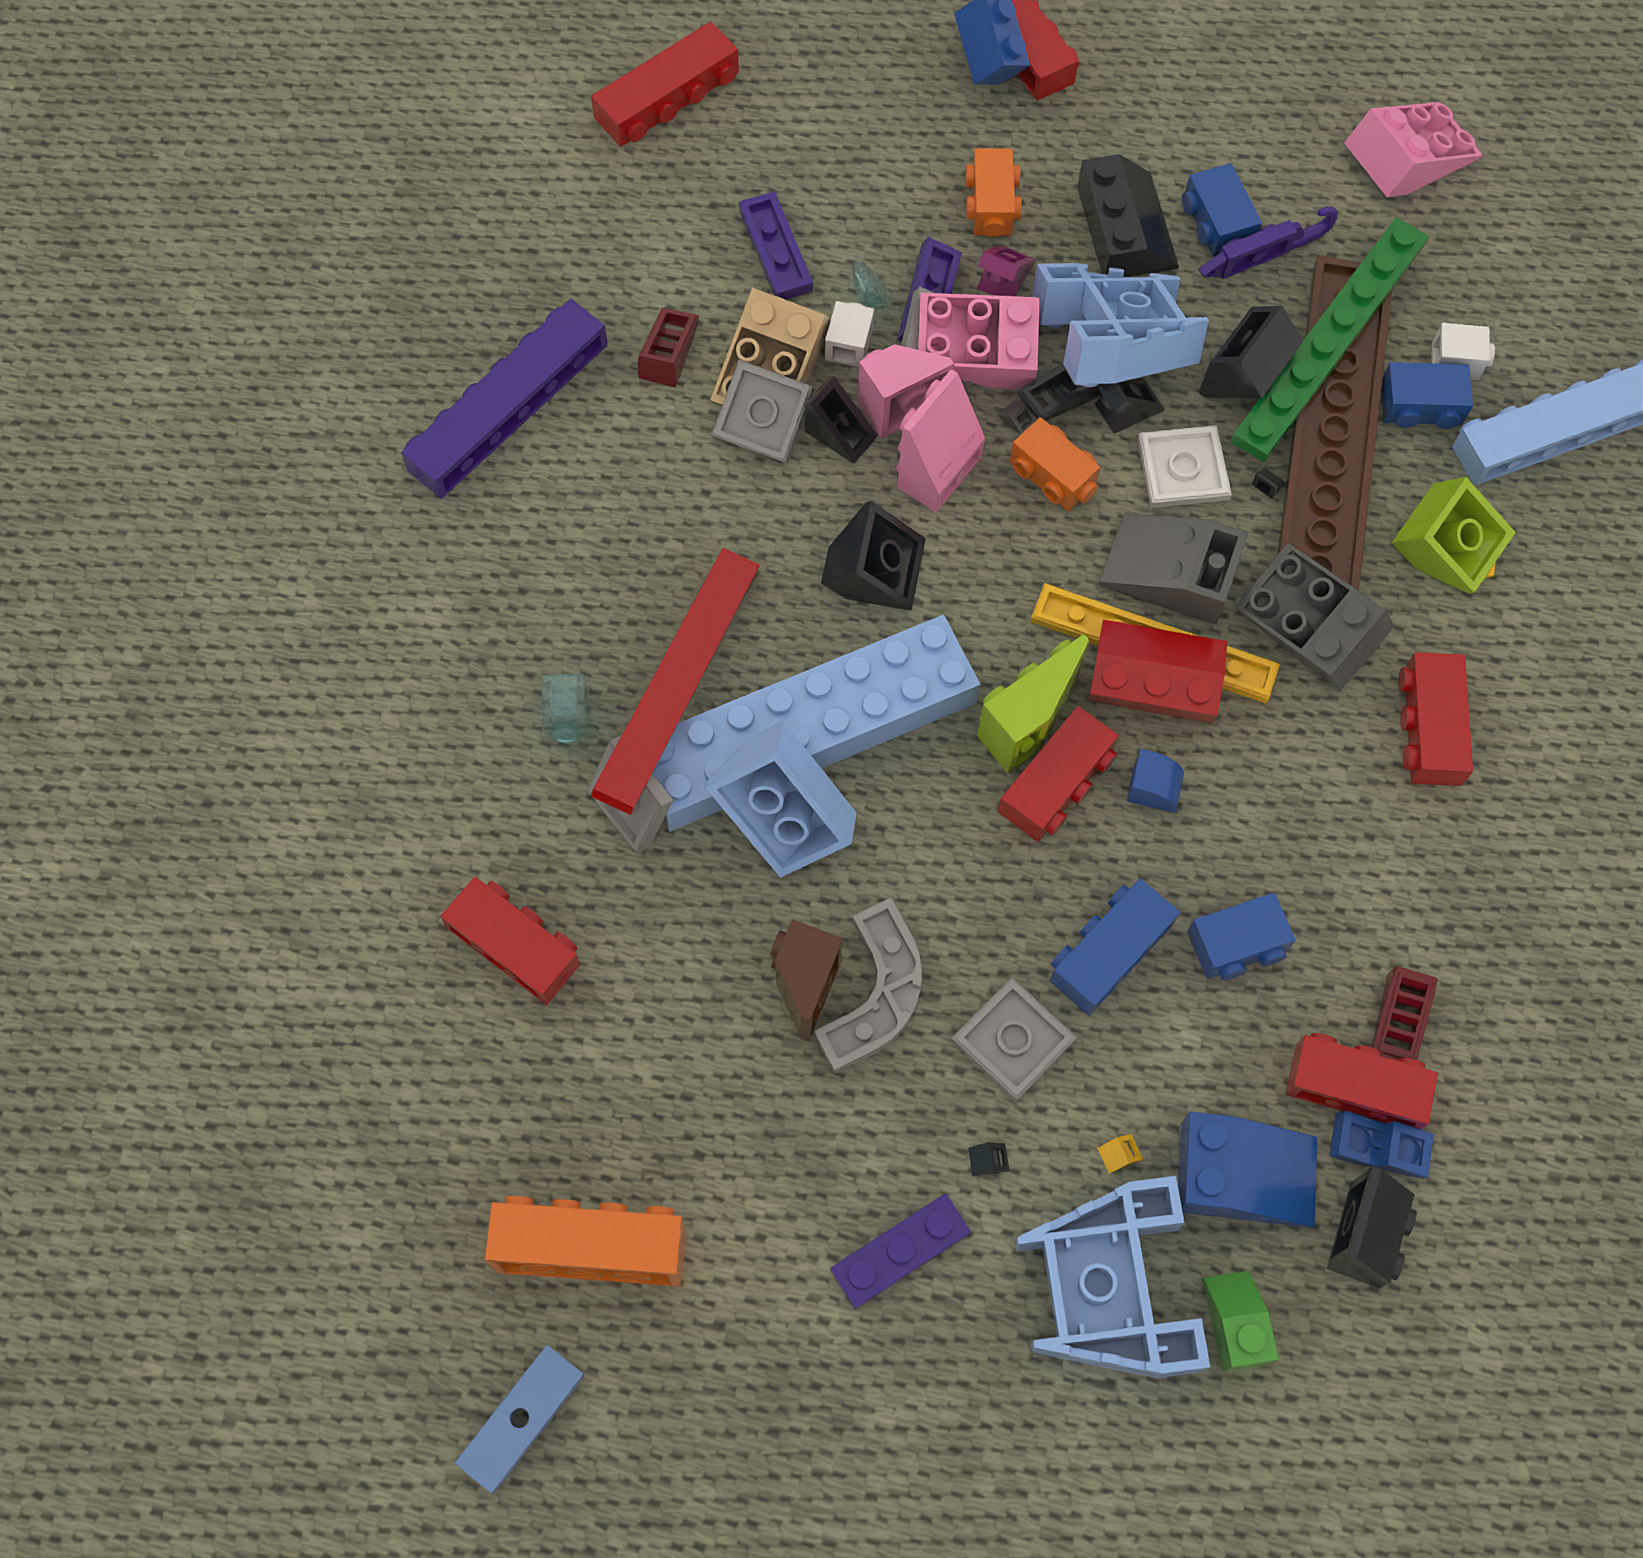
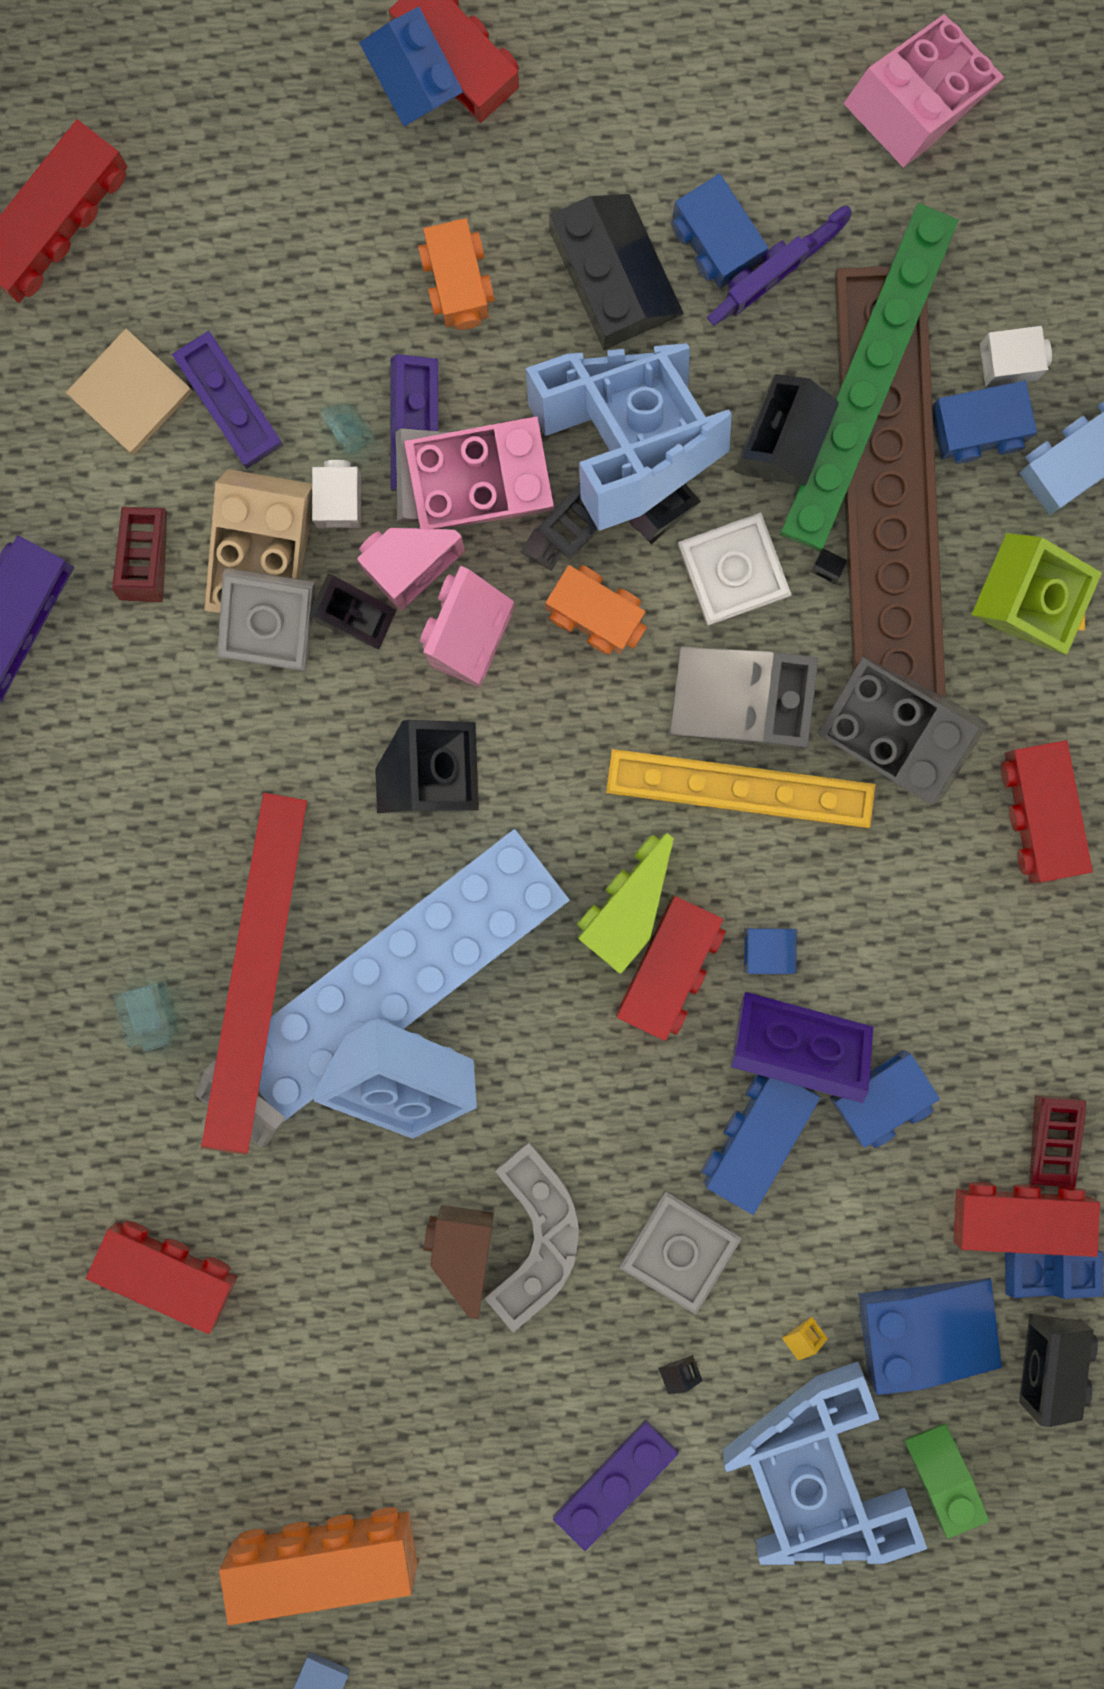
camera: 15 degrees left, 20 degrees up
(693, 226) = (129, 391): none -> tan tile
(1003, 270) = (491, 368): magenta slope -> none
(1159, 671) = (751, 830): red slope -> none
(1171, 867) = (803, 1047): none -> dark purple plate

